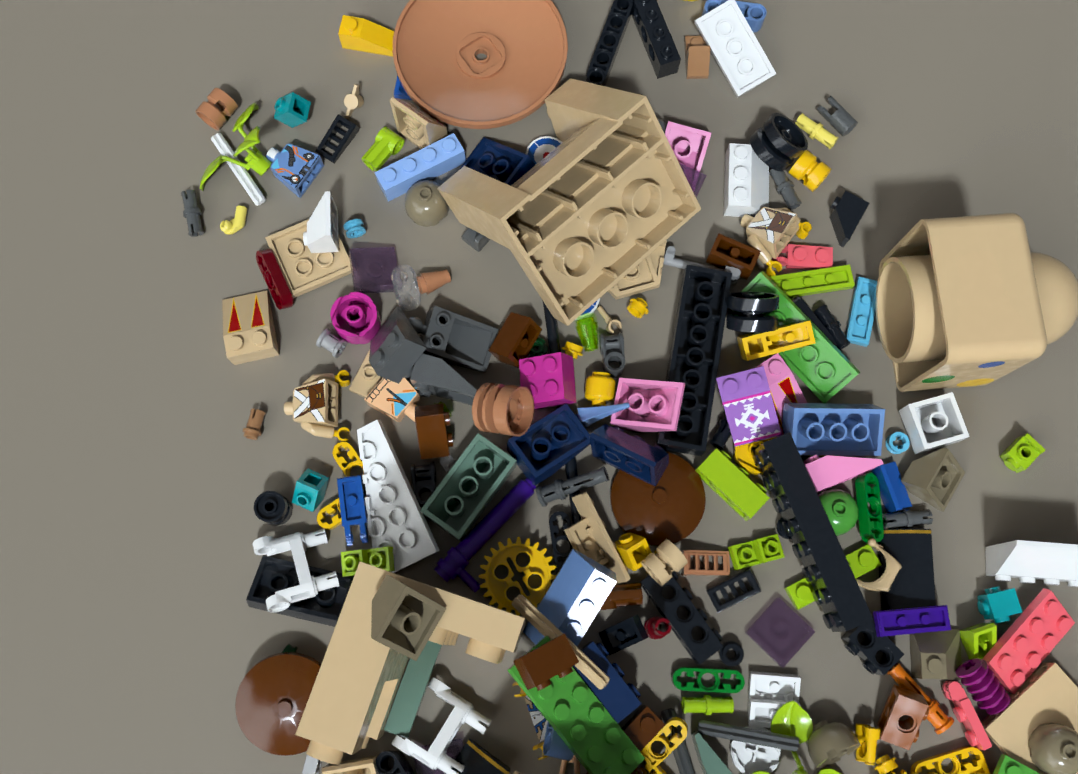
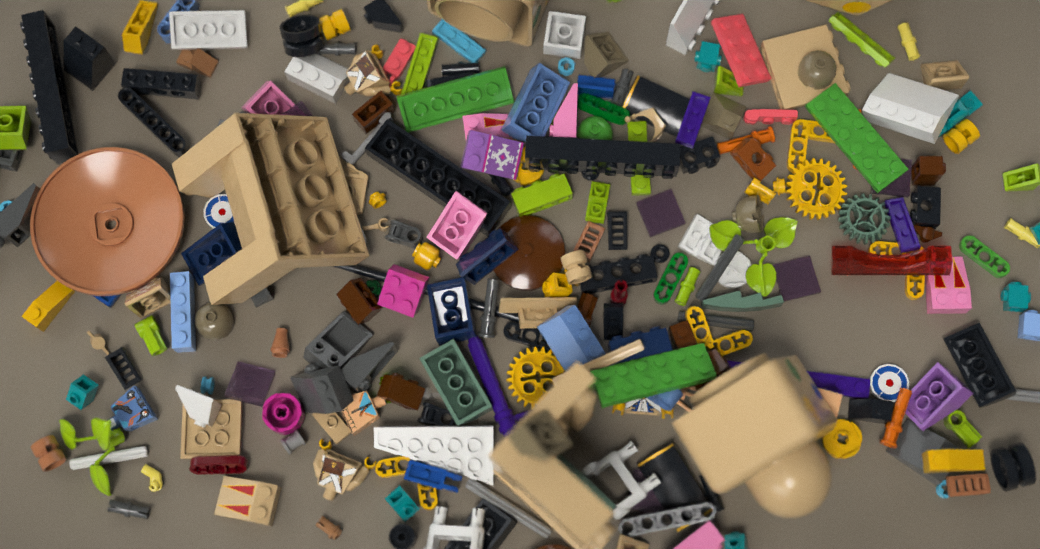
camera: 60 degrees left, 0 degrees up
(378, 557) = (476, 482): lime slope -> none
(406, 287) = (276, 365): clear plate -> none
(503, 409) = (411, 330): nougat wheel -> none
(545, 662) = (609, 377): reddish brown brick -> none
(573, 349) = (387, 262): yellow plate -> none
(588, 333) = (379, 245): clear neon green cone -> none
(590, 415) = (443, 271): medium blue piece -> none
(752, 311) = (424, 118): black wheel -> none
(767, 343) = (452, 113): yellow slope -> none
(983, 685) = (756, 95): magenta piece -> none

